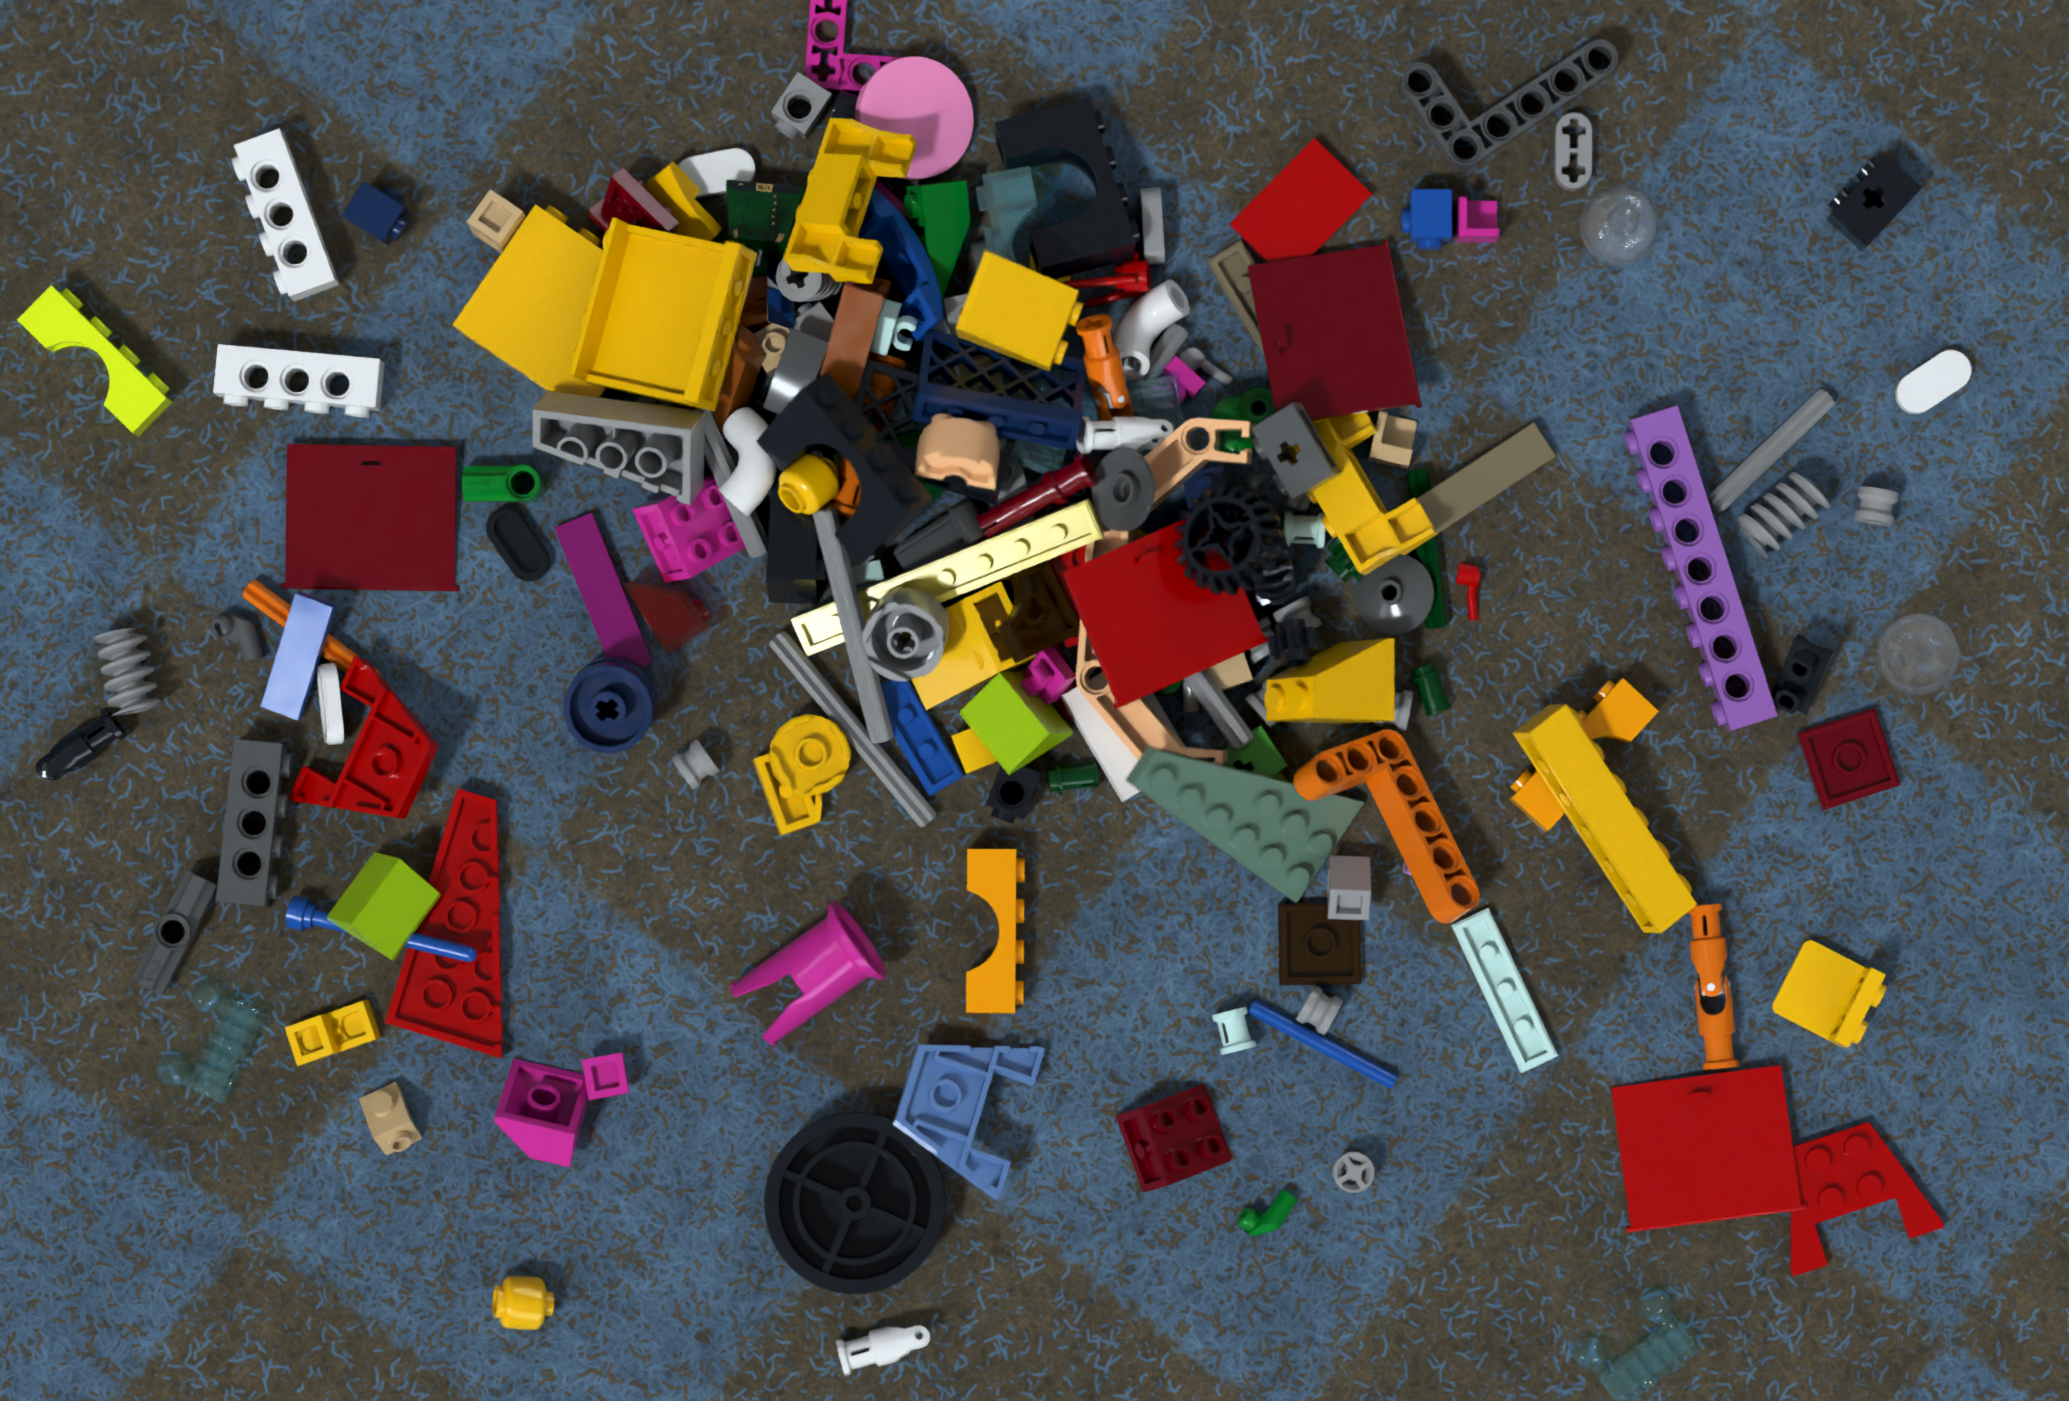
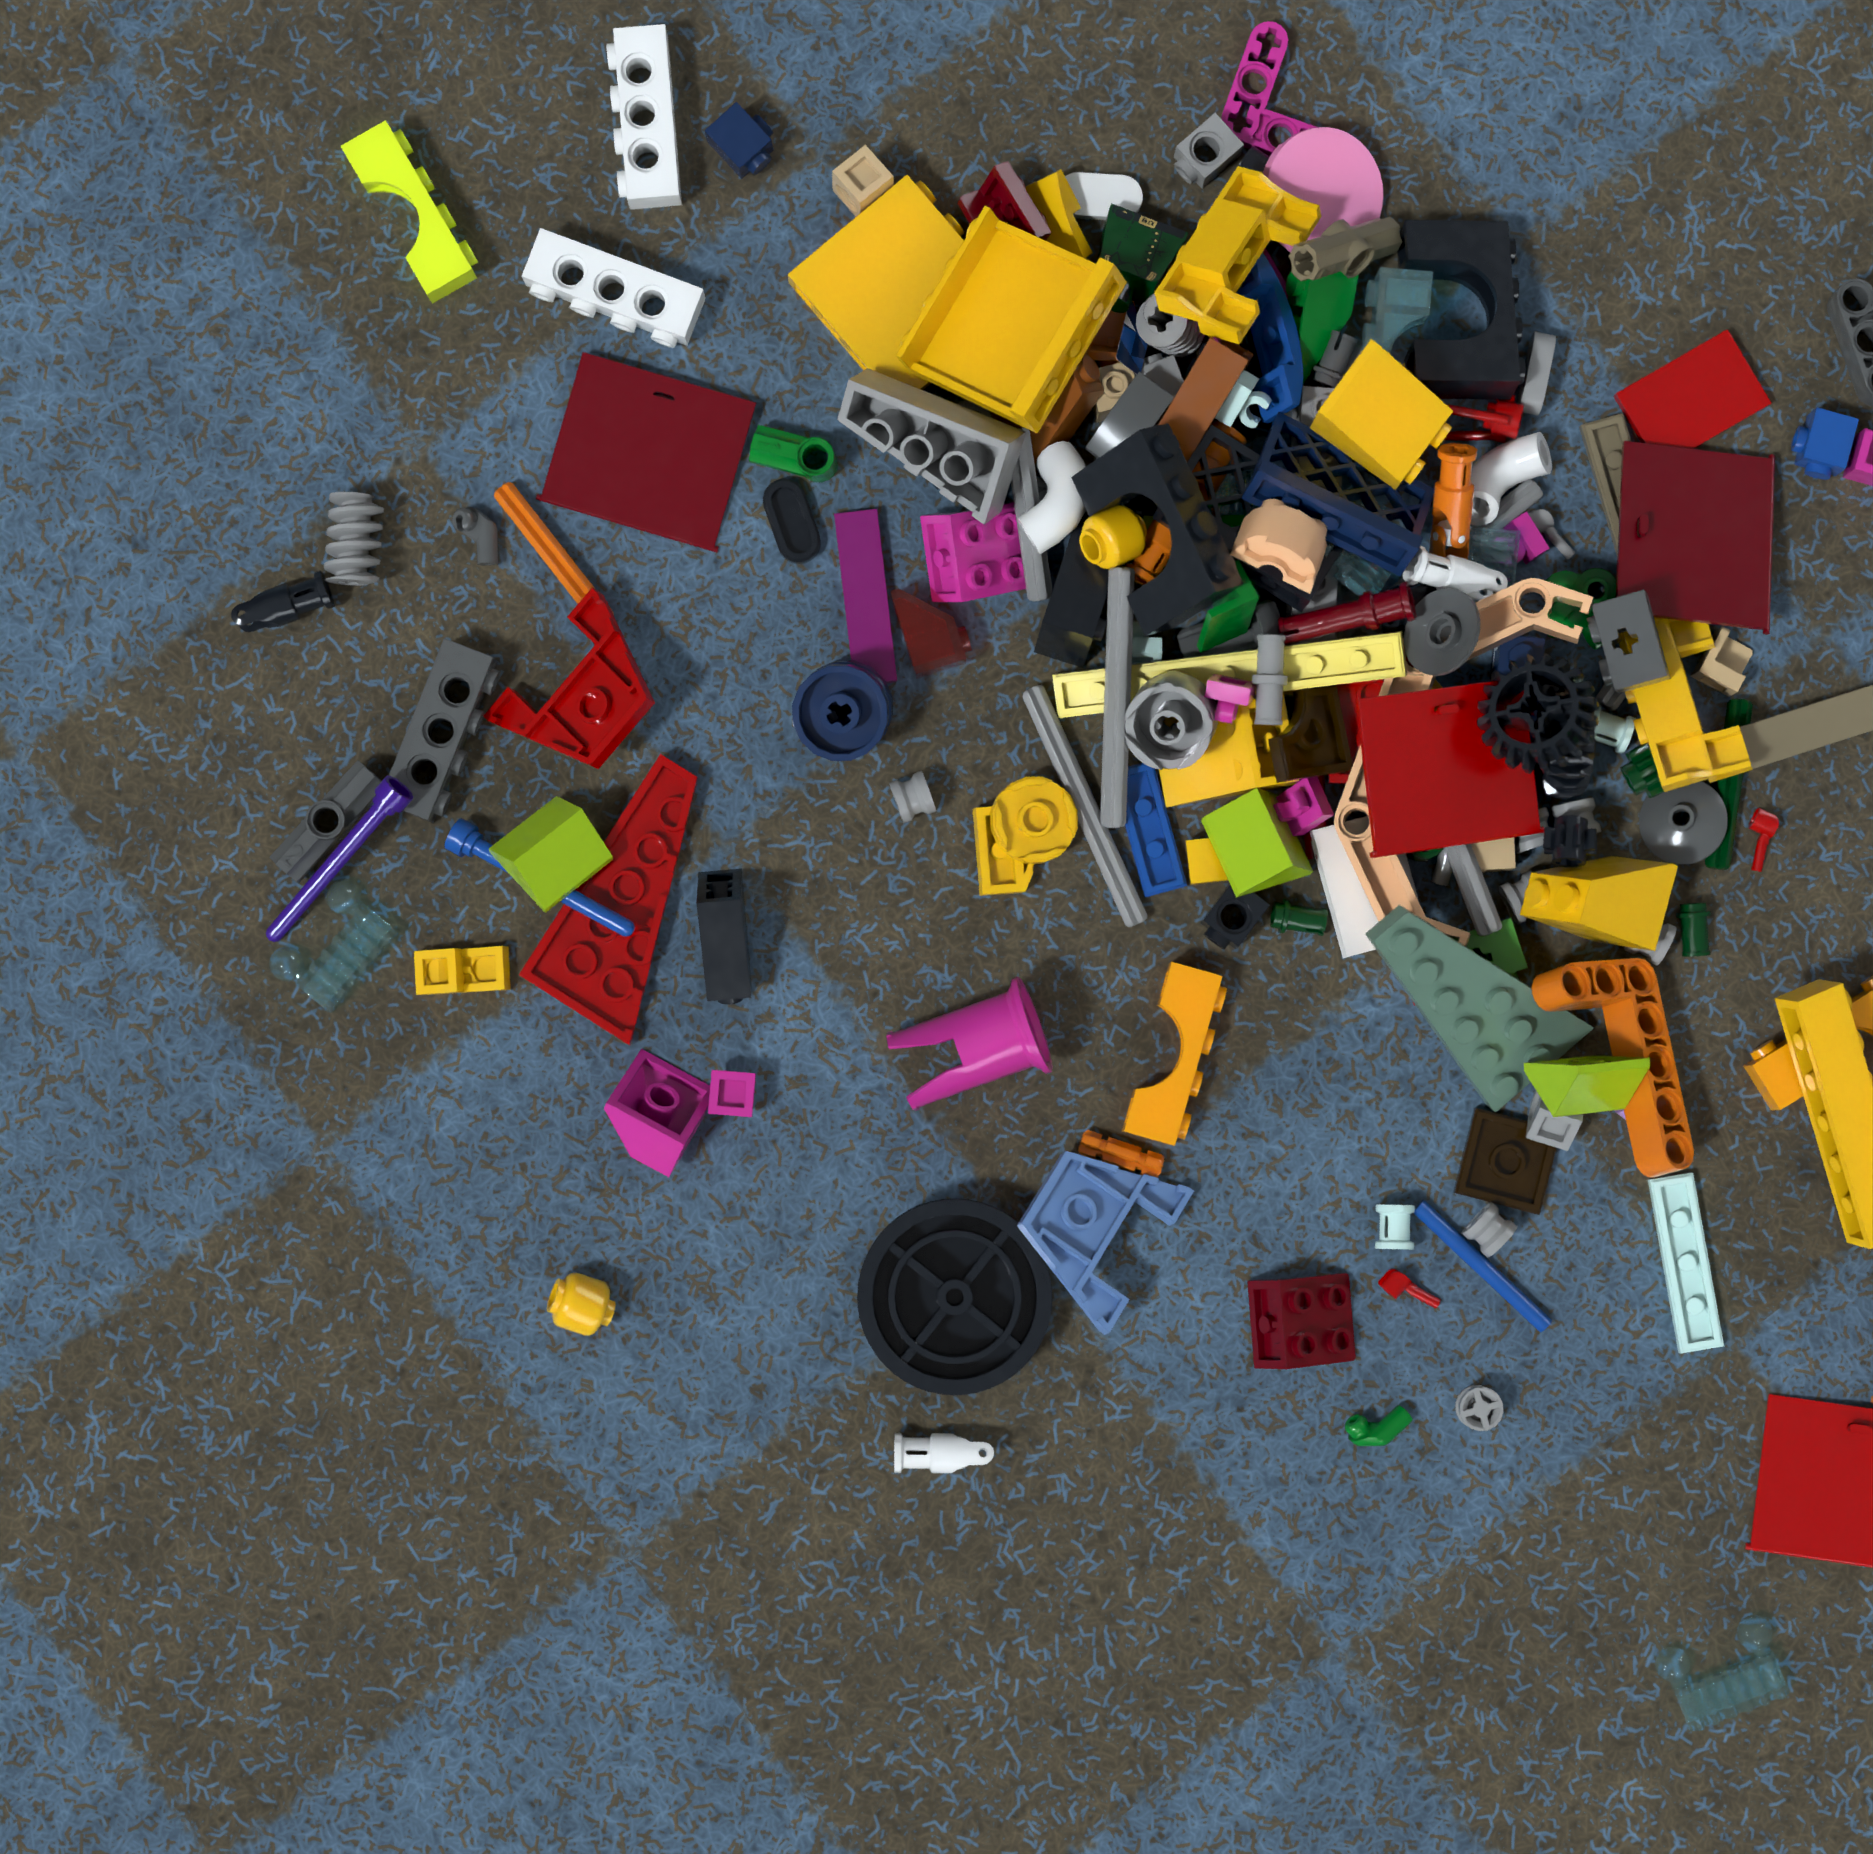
camera: 10 degrees right, 0 degrees up
(225, 896) = (390, 798): none -> dark purple piece
(298, 655) = (534, 571): tile -> none
(330, 704) = (553, 630): white tile -> none
(390, 1119) = (496, 1076): tan bracket -> none
(559, 936) = (724, 935): none -> black slope
(934, 524) = (1230, 615): none -> green panel
(947, 165) = (1345, 248): none -> dark tan piece
(952, 596) = (1229, 693): none -> dark pink tile
(965, 265) = (1334, 359): none -> dark grey pin
(970, 1033) = (1120, 1154): none -> orange axle
(983, 573) = (1269, 680): none -> light grey pin
(1249, 1080) = (1396, 1282): none -> red hand
(1366, 855) = (1586, 1082): none -> lime slope

